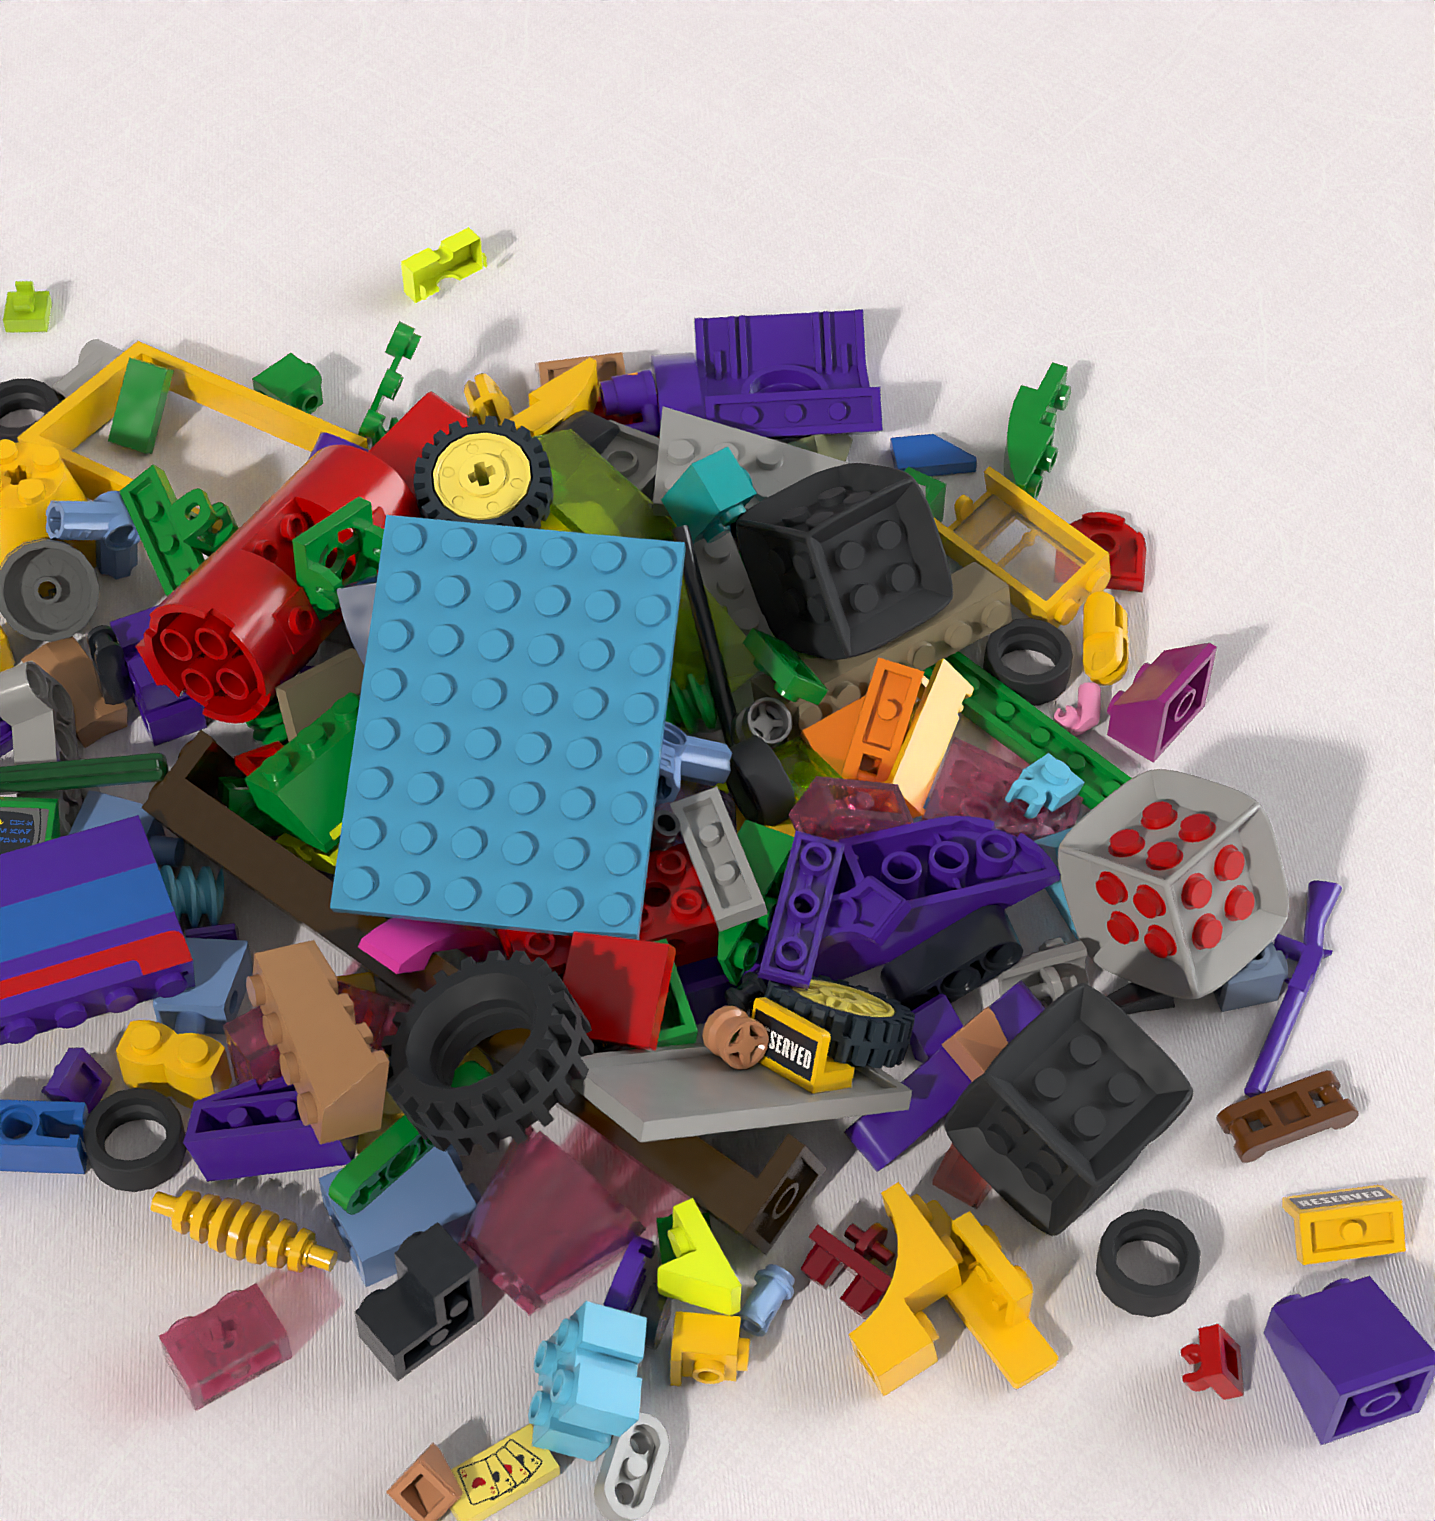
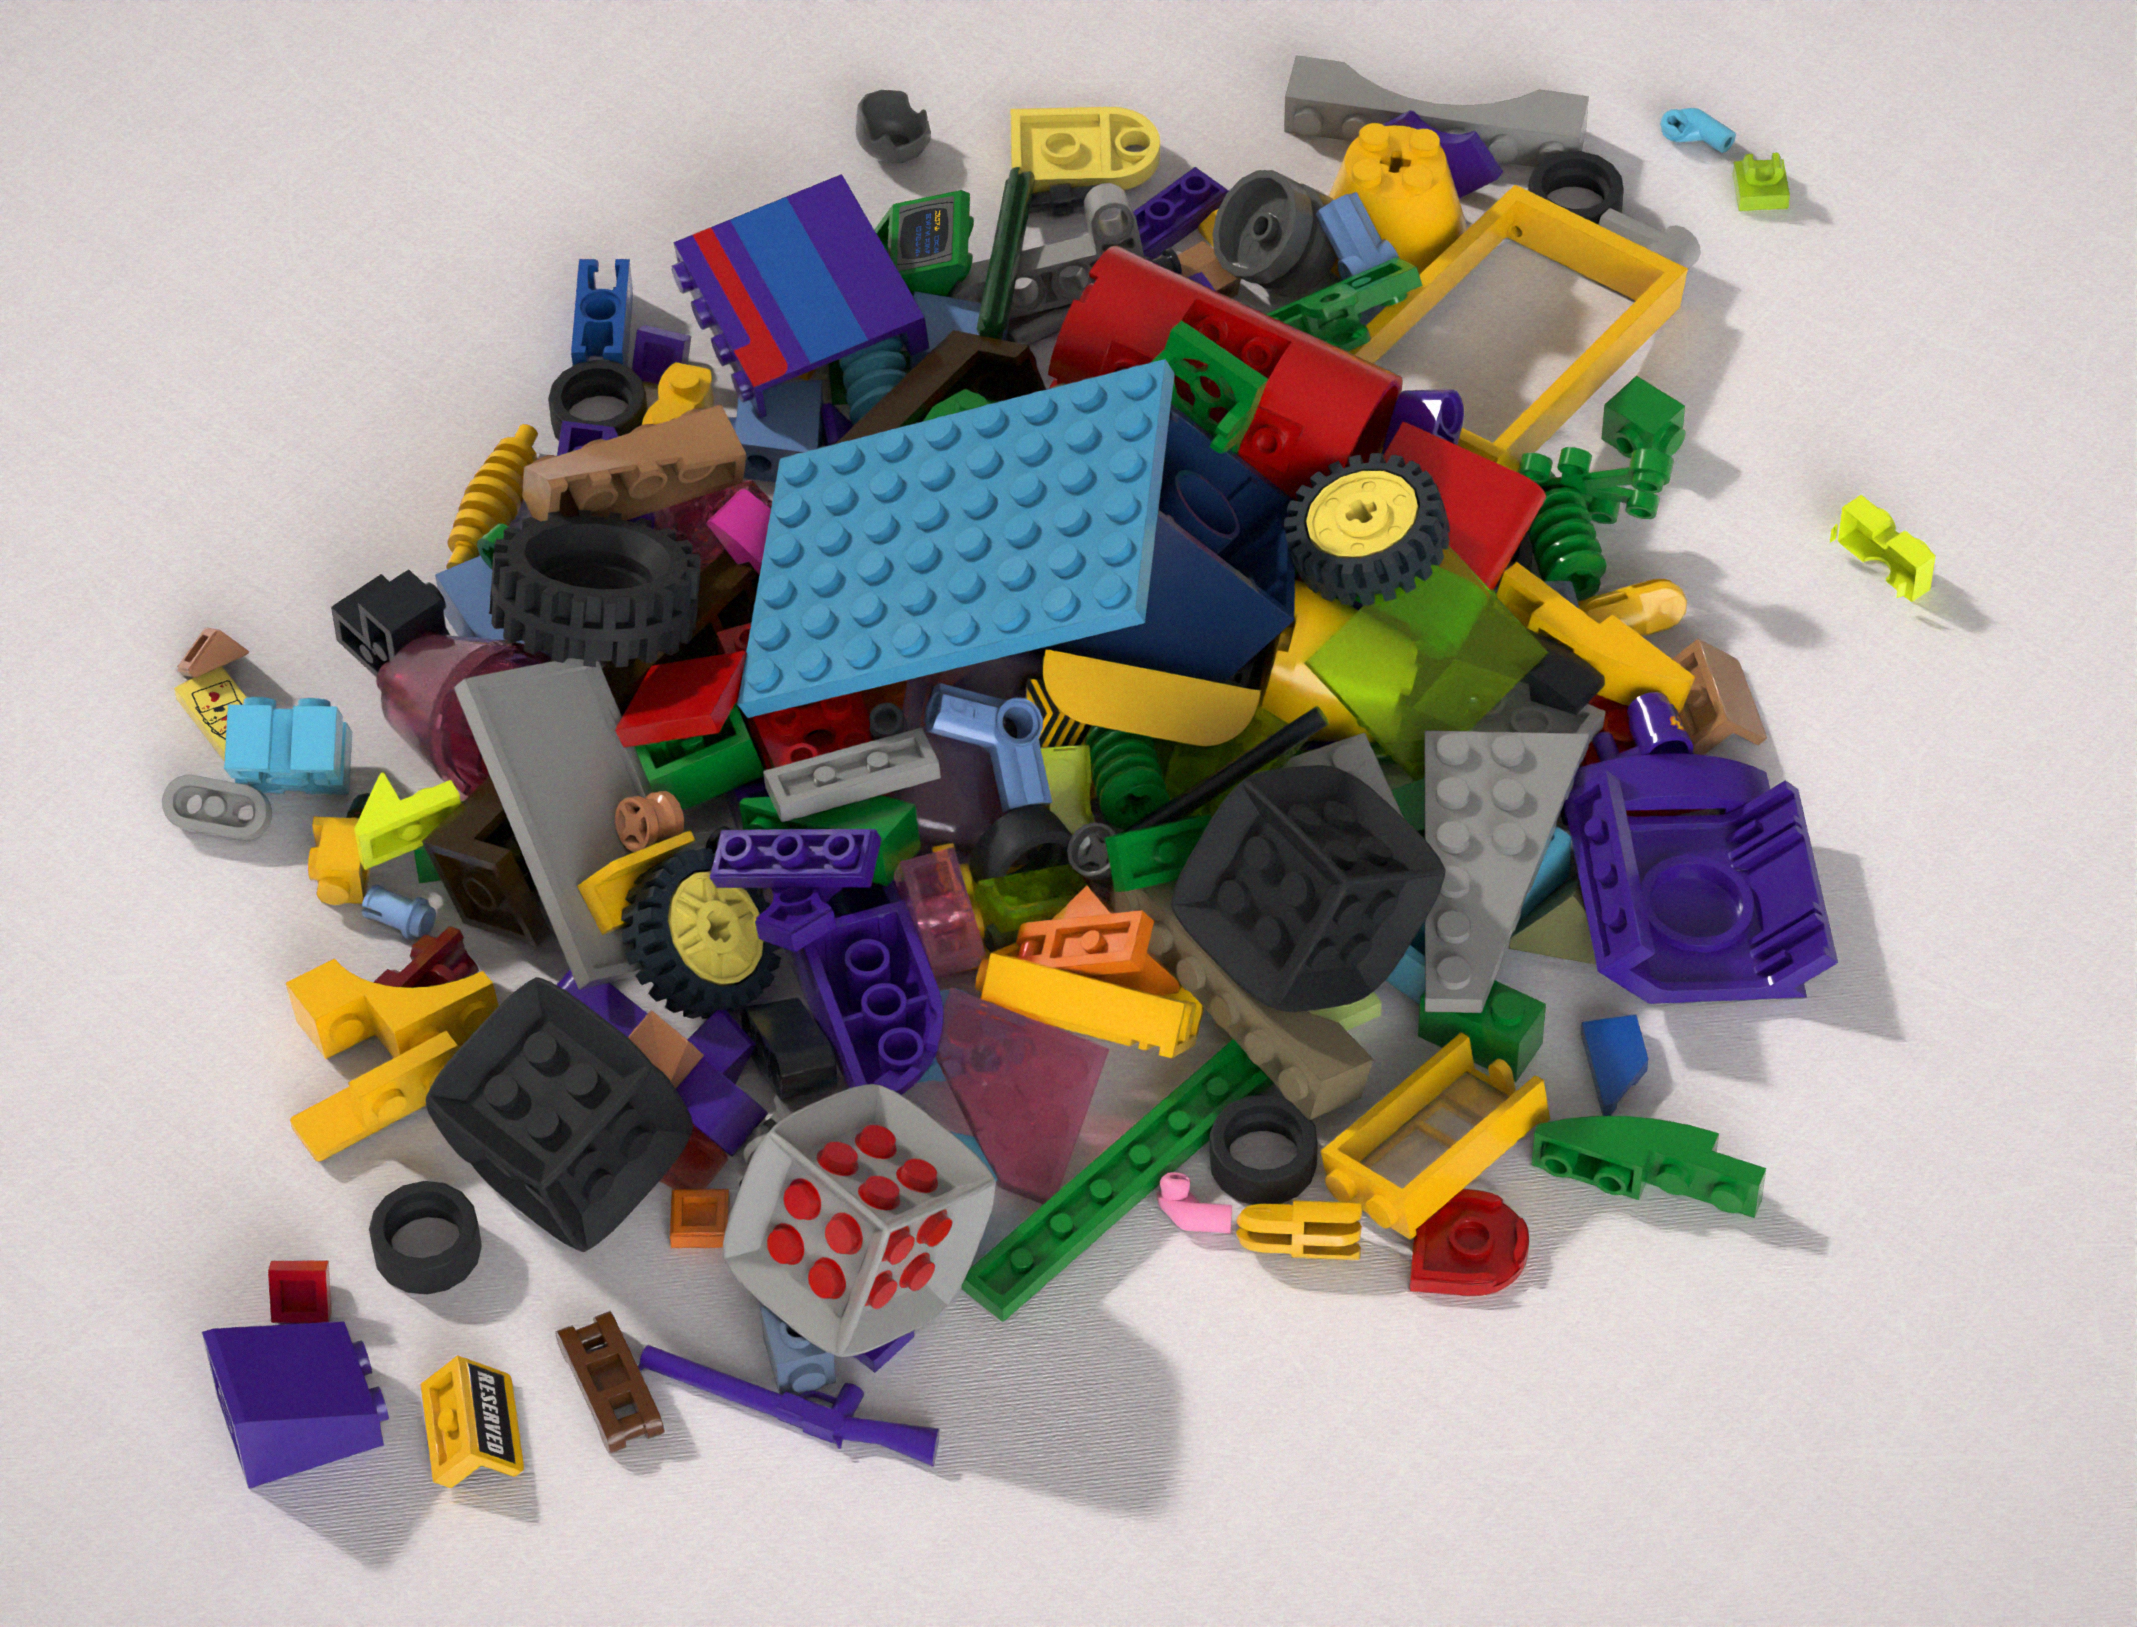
camera: 90 degrees right, 0 degrees up
(140, 405) = (1588, 287): green tile -> none
(213, 1369) = (366, 497): clear pink brick -> none
(630, 1275) = (403, 767): dark purple tile -> none
(710, 496) = (1389, 752): teal brick -> none
(1045, 783) = (1050, 1147): medium azure plate -> none
(1162, 699) = (1194, 1275): magenta slope -> none

